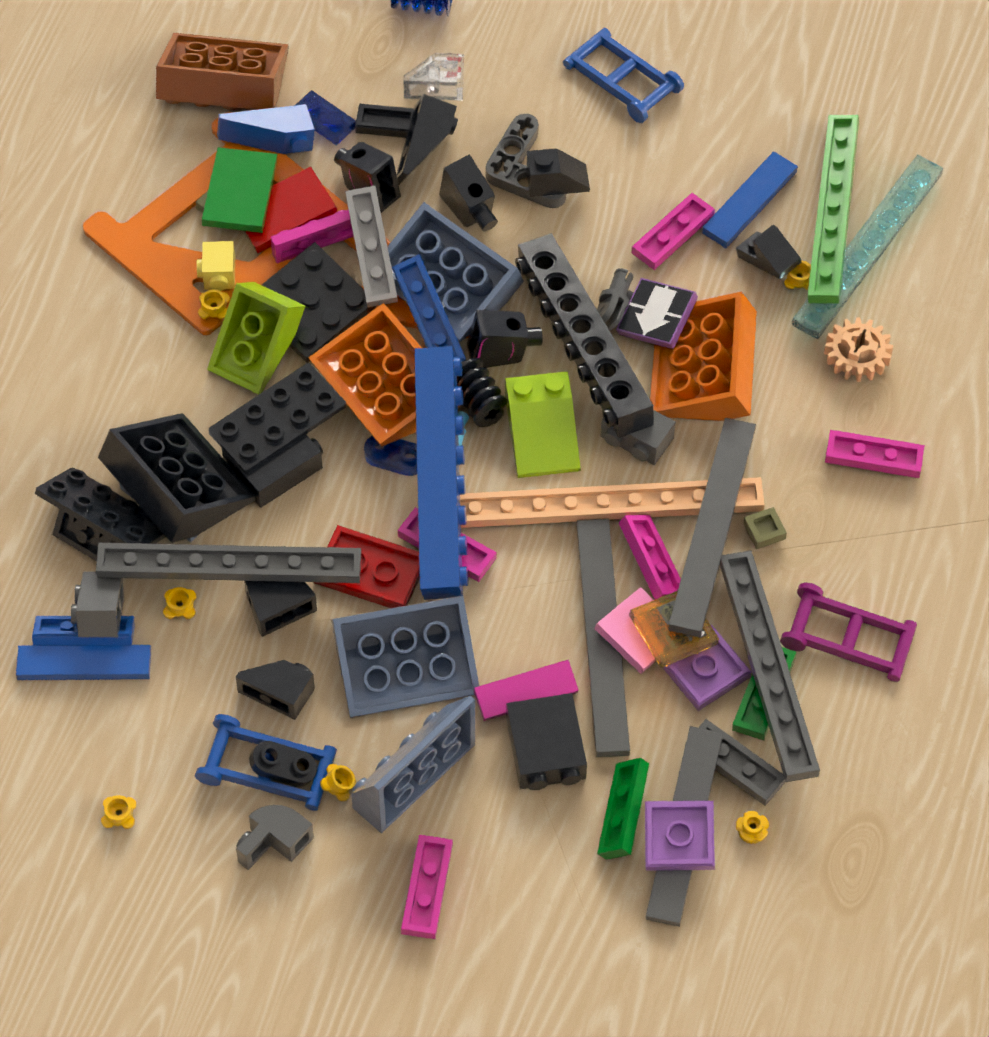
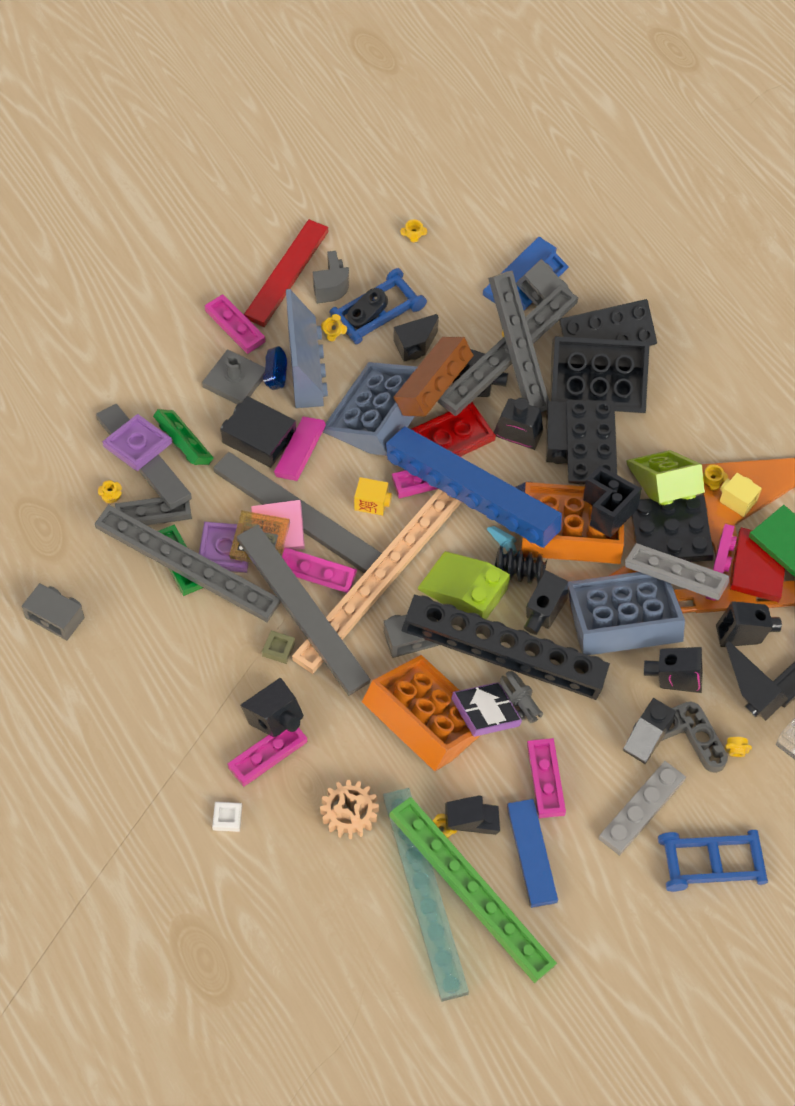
camera: 130 degrees right, 0 degrees up
(224, 538) = (518, 339): none -> dark grey plate
(300, 899) = (286, 273): none -> red tile
(305, 498) = (520, 423): none -> black torso
(336, 596) = (433, 376): none -> dark orange brick
(349, 325) = (612, 500): none -> black brick
(426, 305) = (600, 575): blue tile -> none
(460, 785) = (275, 368): none -> clear blue plate
(496, 831) = (234, 377): none -> dark grey tile
(499, 114) = (737, 746): none -> yellow plate
(522, 575) = (372, 496): none -> yellow brick
(627, 150) = (642, 808): none -> light grey plate
(797, 640) = (190, 603): magenta piece -> none
(834, 467) = (273, 709): none -> black torso
(933, 750) = (53, 611): none -> dark grey brick
(961, 442) = (227, 816): none -> white tile

